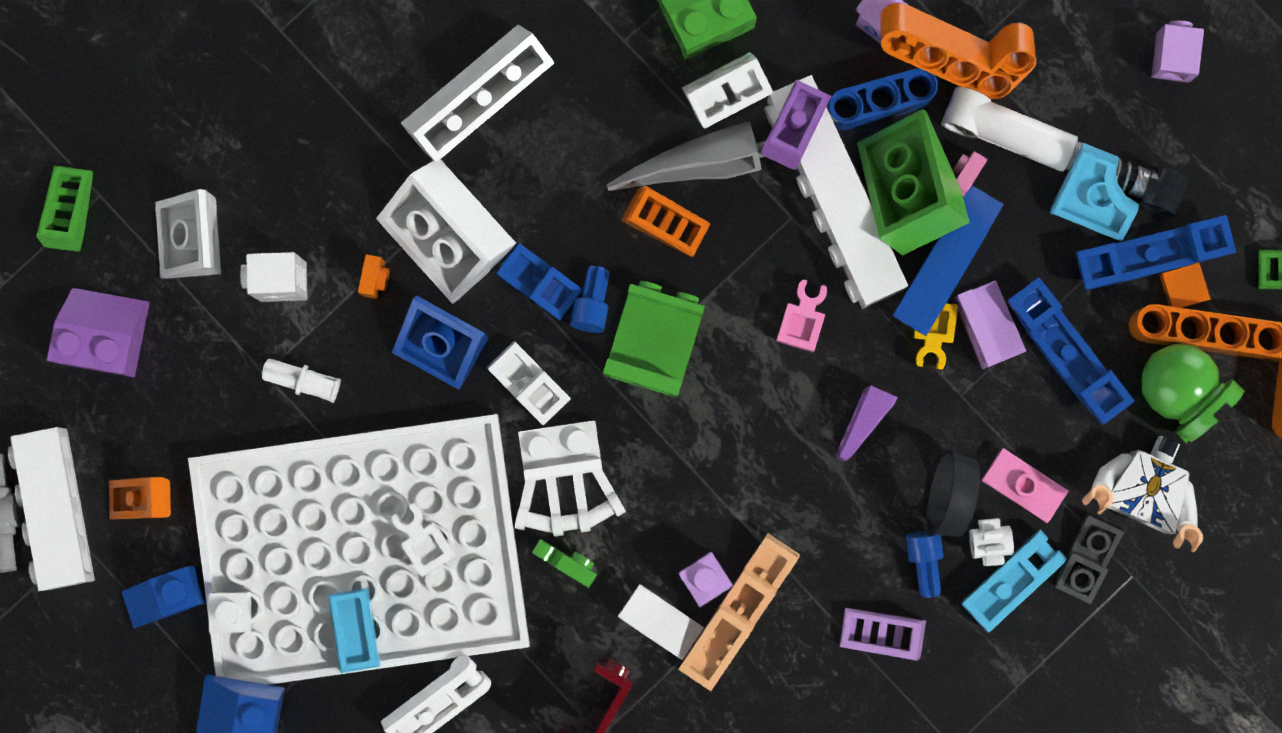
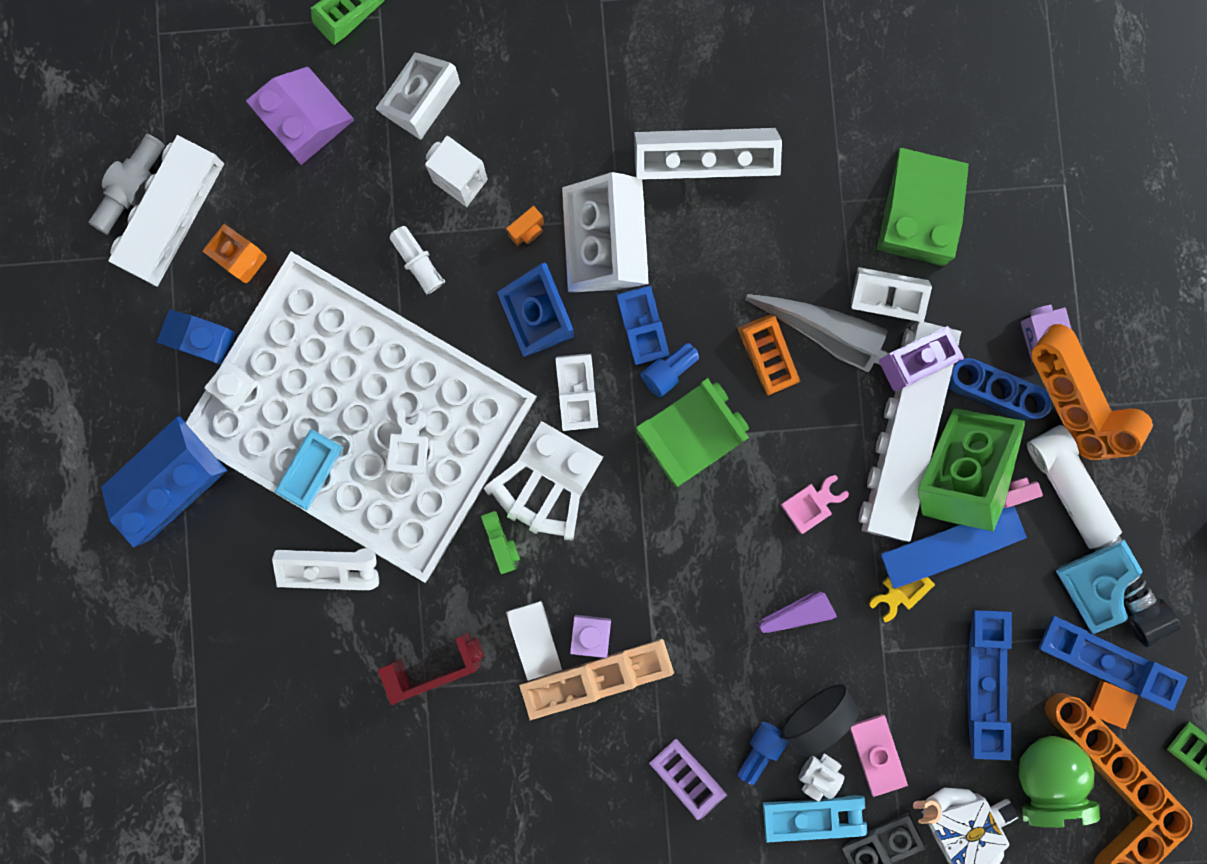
camera: 35 degrees right, 0 degrees up
(989, 324) = (945, 617): lavender panel -> none

